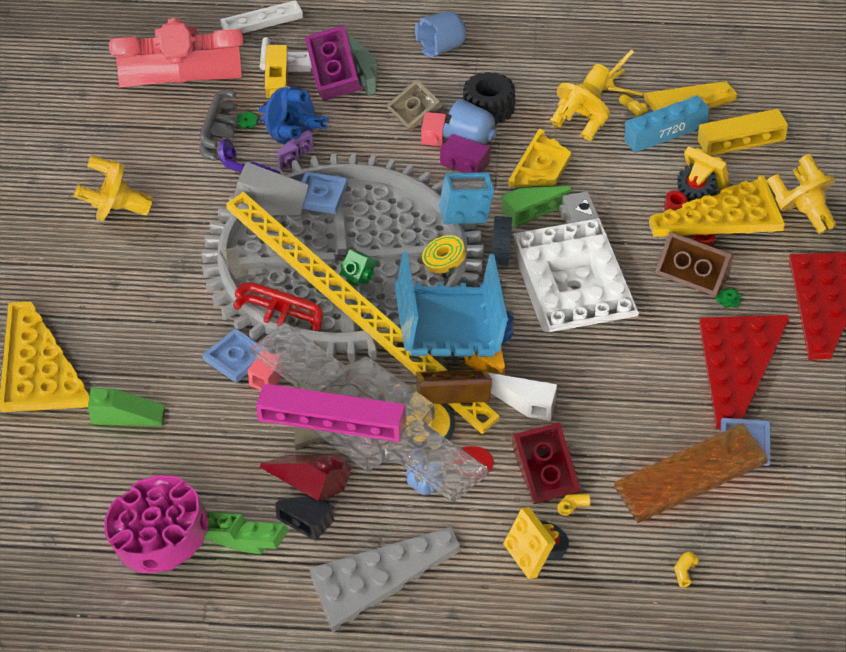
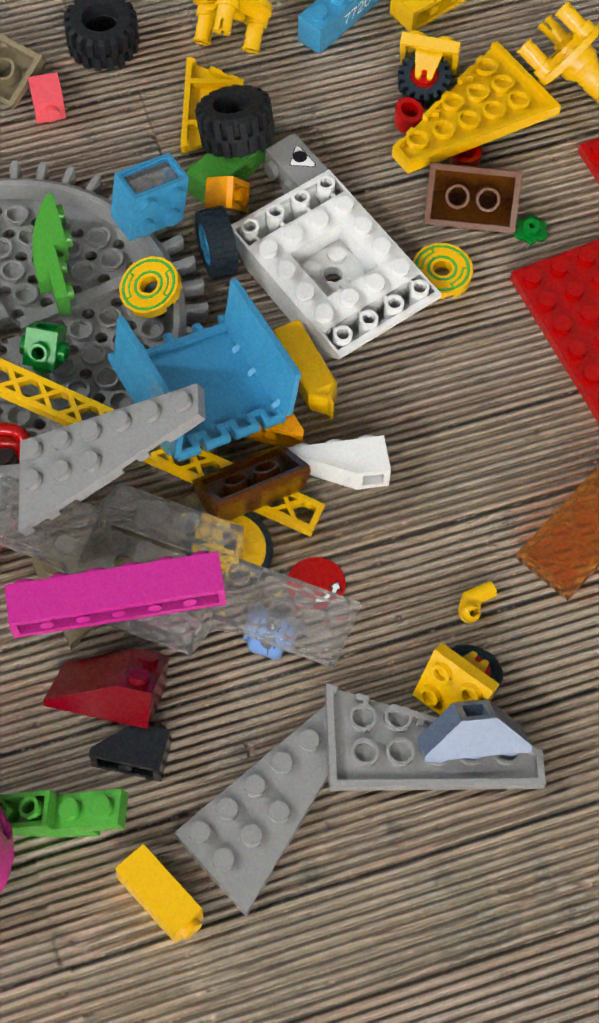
camera: 25 degrees left, 15 degrees up
(282, 597) = (160, 894): none -> yellow brick
(350, 326) = (93, 452): none -> light grey wing
(389, 216) = (51, 253): none -> bright green slope
(464, 155) = (106, 126): magenta brick -> none
(470, 123) = (97, 79): medium blue cylinder -> none
(482, 569) = (378, 750): none -> light grey wing
(525, 215) = (227, 192): none -> light orange slope
(526, 566) = (472, 732): none -> slope
(527, 333) = (316, 381): none -> yellow piece
(545, 463) = (417, 556): dark red slope -> none
(548, 171) = (235, 121): none -> black tyre
(655, 295) = (448, 257): none -> yellow tile

